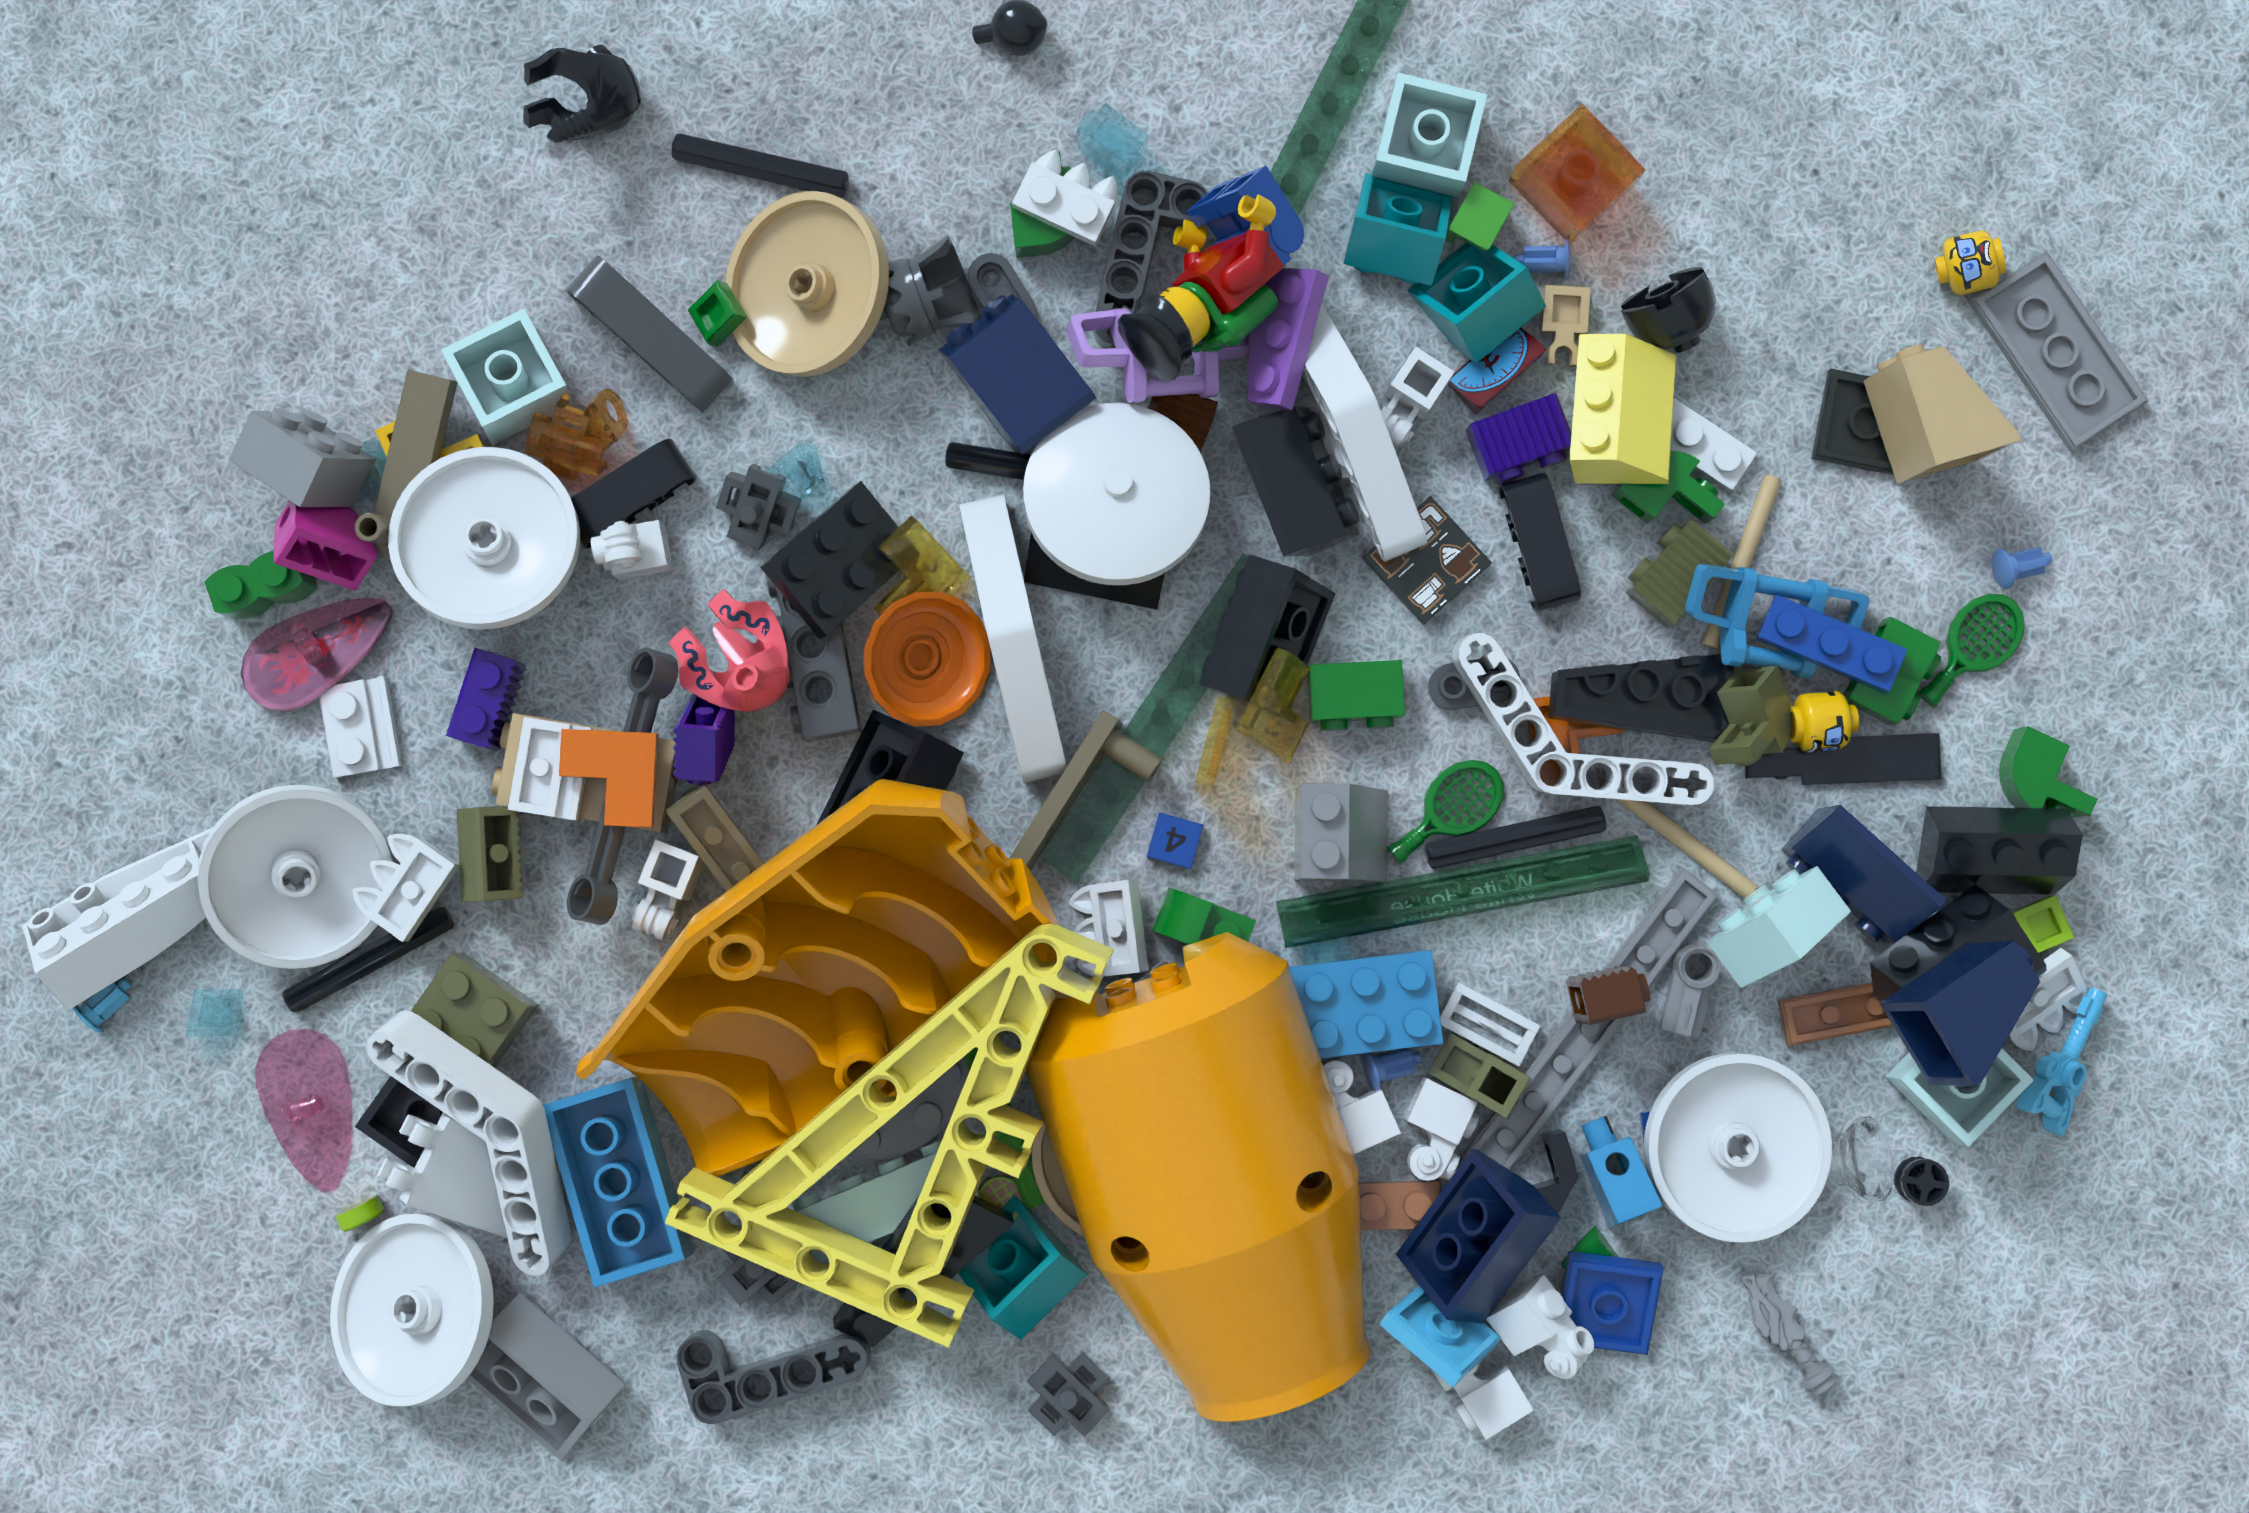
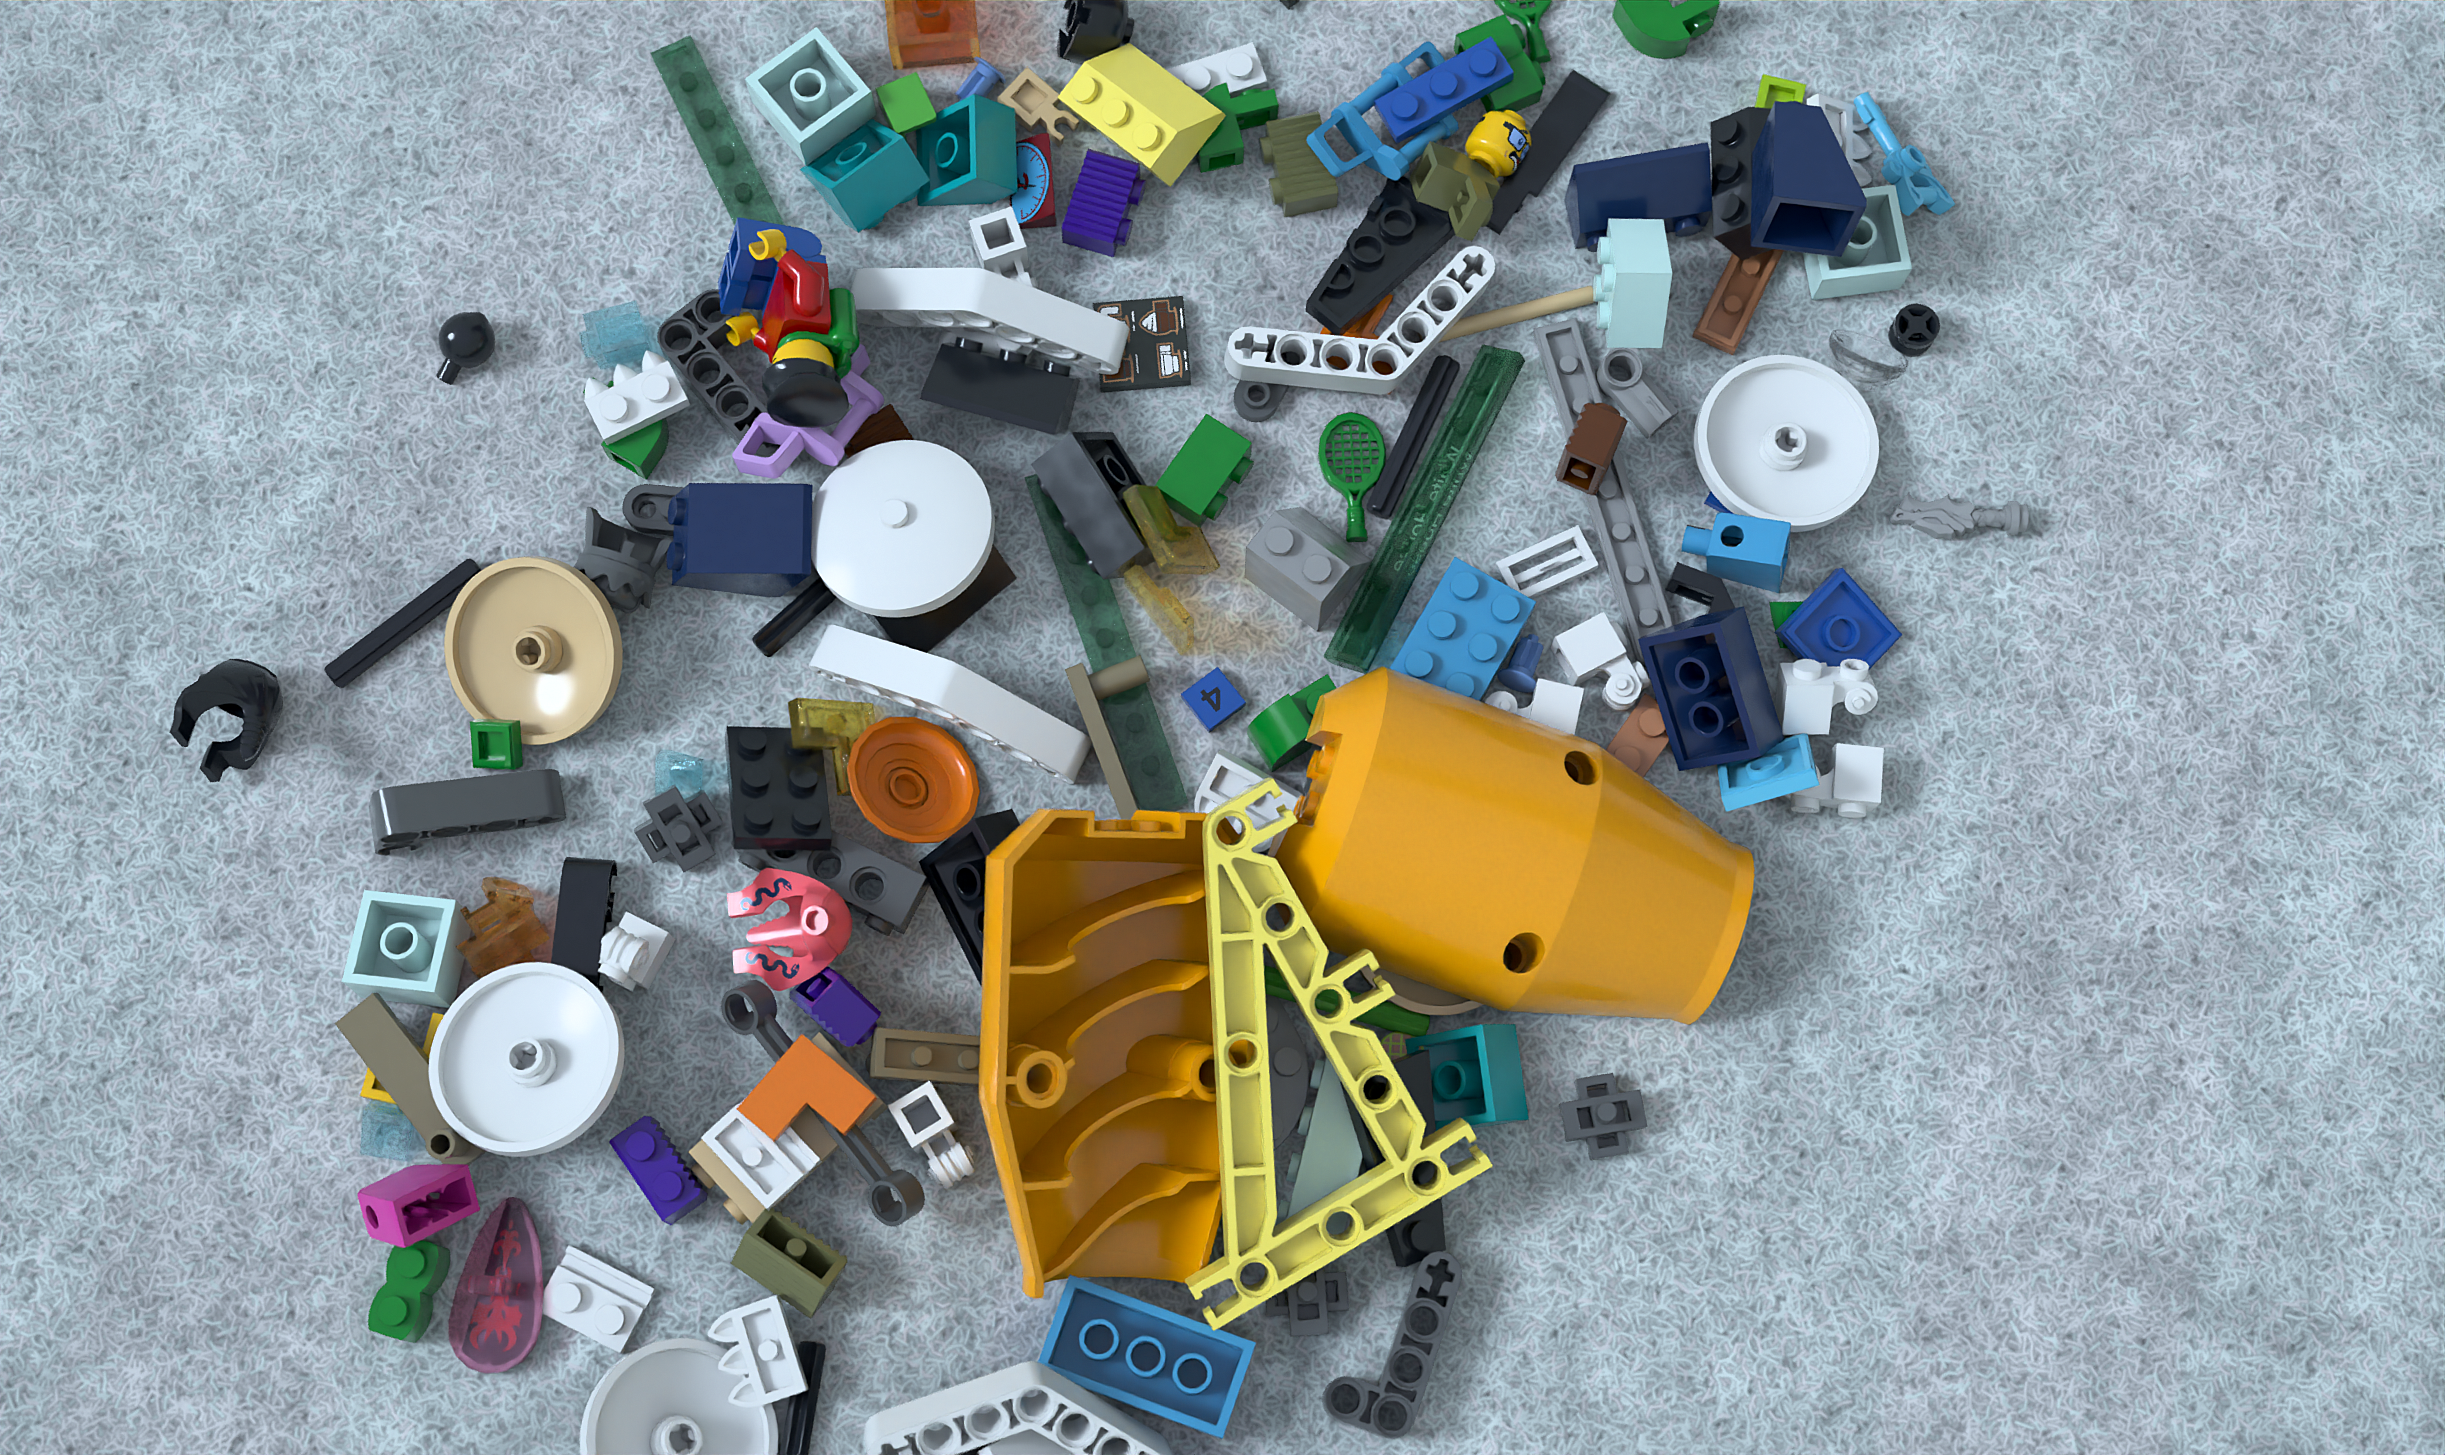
camera: 55 degrees left, 10 degrees down
(303, 458) = (334, 1164): light grey brick -> none
(475, 1007) = (906, 1368): olive brick -> none
(1284, 338) = (884, 314): medium lavender wing -> none
(1480, 1076) = (1594, 589): olive brick -> none
(1542, 541) = (1196, 246): black beam -> none
(1746, 548) = (1320, 103): tan bar -> none
(1998, 849) = (1698, 83): black slope -> none

